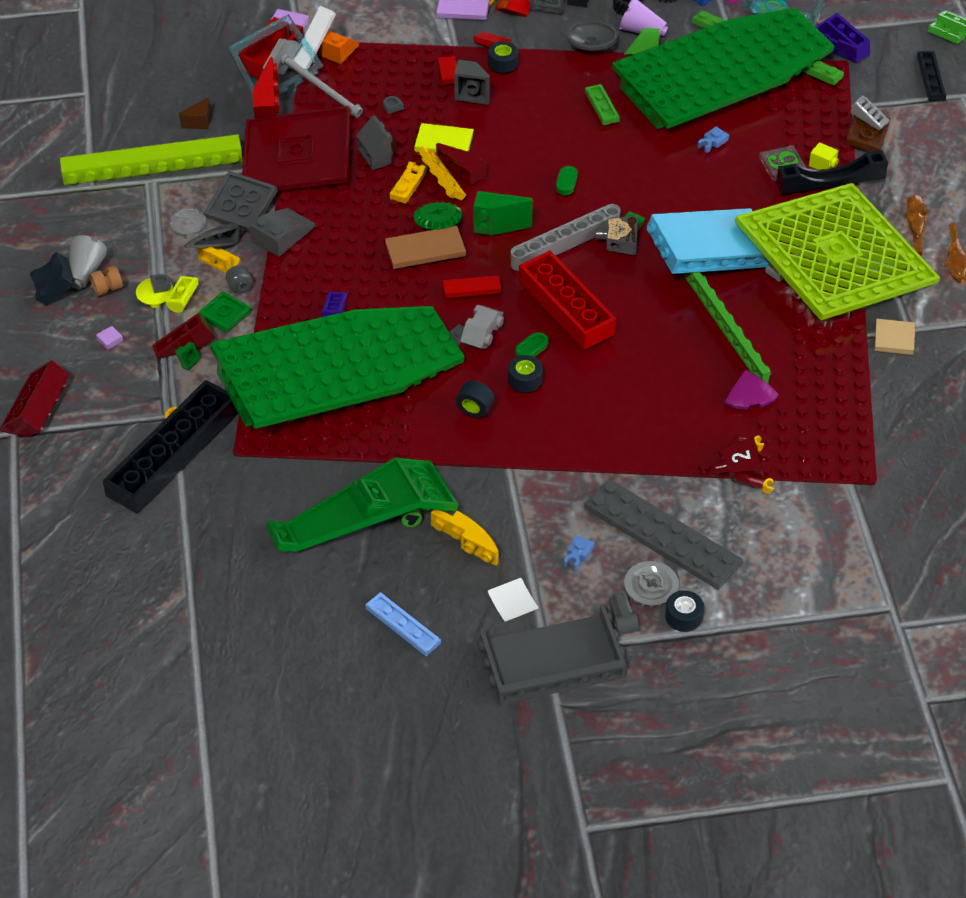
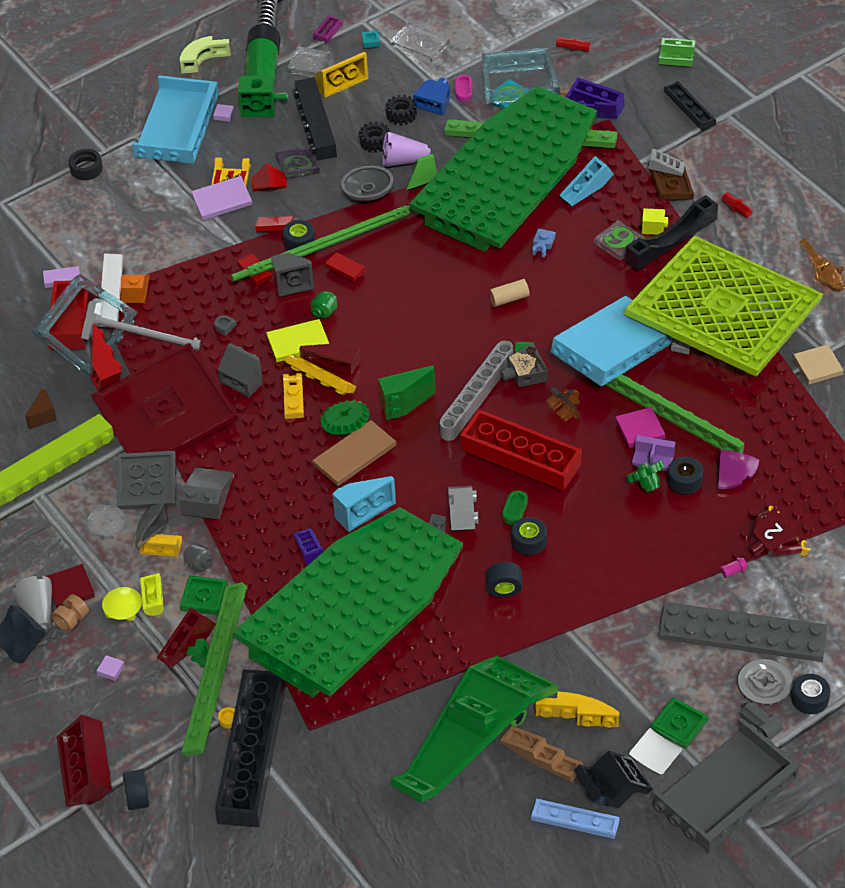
camera: 25 degrees left, 0 degrees up
(57, 439) = (135, 789): none -> black wheel
(126, 259) = (68, 582): none -> dark red tile
(160, 282) = (125, 593): dark grey tile -> none
(184, 377) = (214, 670): none -> bright green plate
(401, 287) = (362, 501): none -> medium azure slope
(411, 557) = (540, 753): none -> medium nougat slope
(453, 604) = (612, 779): none -> black bracket
(472, 286) = (422, 473): red tile -> none
(484, 118) = (324, 304): none -> green head
(526, 96) = (345, 267): none -> red tile
(528, 69) = (328, 240): none -> bright green axle
(550, 585) = (679, 723): none -> green tile
(566, 180) = (438, 334): green tile -> none
(578, 550) = (682, 680): medium blue plate -> none
(602, 104) = (420, 247): bright green tile -> none
(642, 274) = (568, 409): none -> clear orange hips
(651, 168) = (509, 293): none -> tan brick
(663, 364) = (646, 475): none -> green plant
(685, 350) = (653, 450): none -> medium lavender panel
(689, 324) = (639, 423): none -> dark pink tile
(692, 475) = (734, 567): none -> dark pink pin
(699, 379) = (685, 475): none -> black wheel
(790, 102) = (587, 181): none -> medium azure slope
(914, 173) = (736, 205): none -> red axle
(916, 217) = (768, 246): clear orange piece -> none

